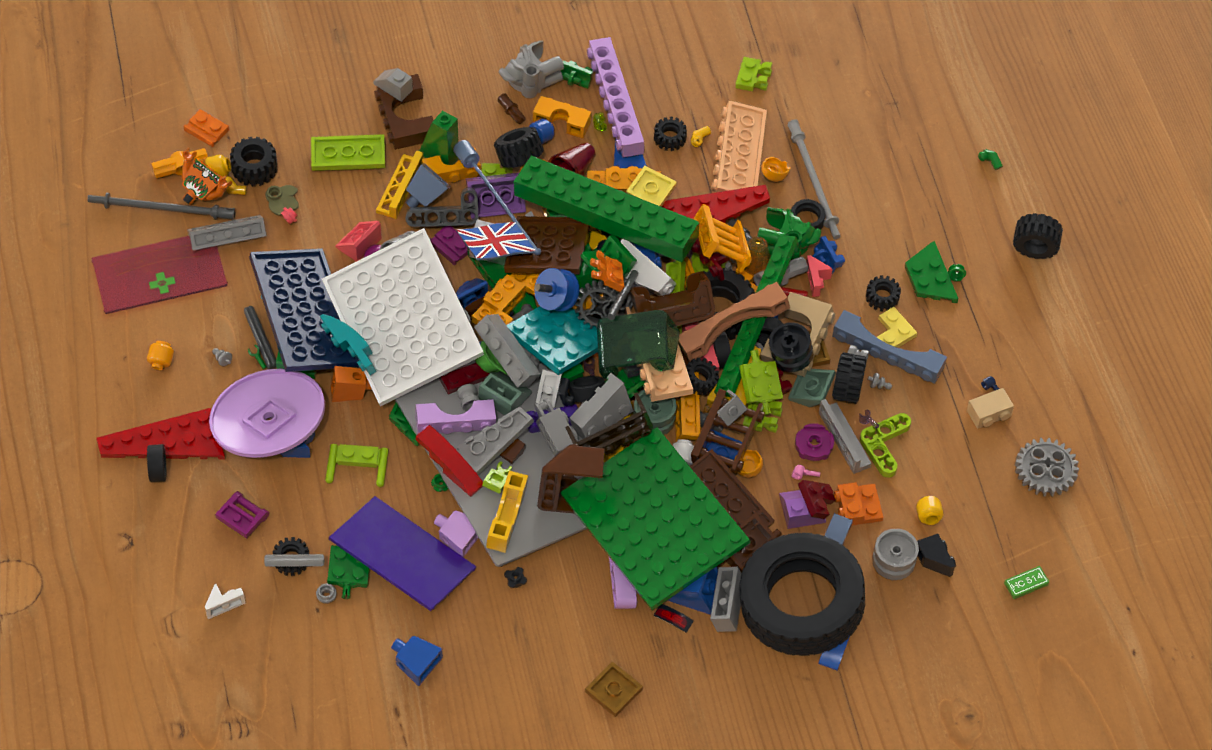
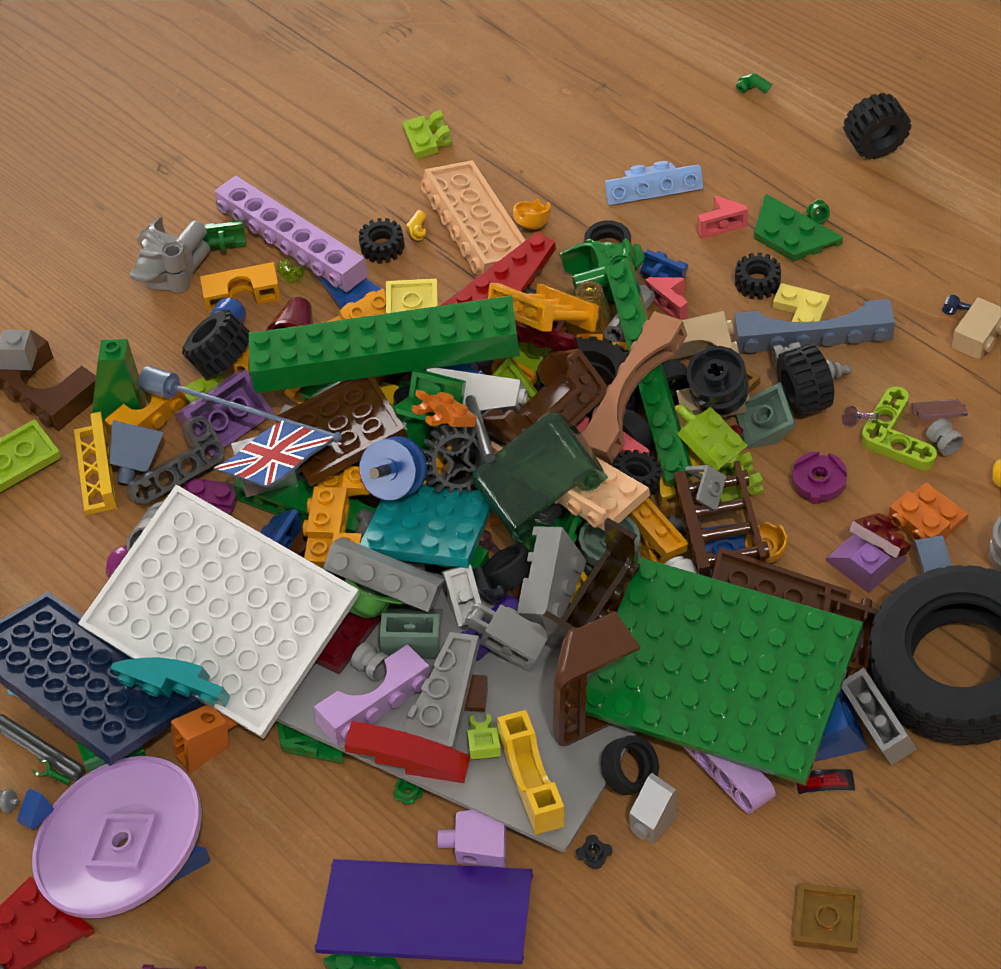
camera: 25 degrees left, 5 degrees down
(235, 372) = (34, 809): none -> blue slope
(357, 456) = (274, 822): lime plate -> none
(360, 239) = (89, 554): coral slope -> none
(511, 108) = (171, 311): reddish brown axle -> none
(561, 574) = (653, 809): none -> light grey slope
(581, 547) = (612, 769): none -> black tyre
(798, 137) = (529, 170): light grey bar -> none
(799, 471) = (829, 519): bright pink hand -> none
(844, 437) = (852, 453): light grey fence -> none
(869, 190) = (653, 181): none -> light blue bracket
(893, 243) = (725, 218): none -> coral slope
(909, 462) = (945, 437): none -> light grey wheel
(920, 444) = (939, 409): none -> piece

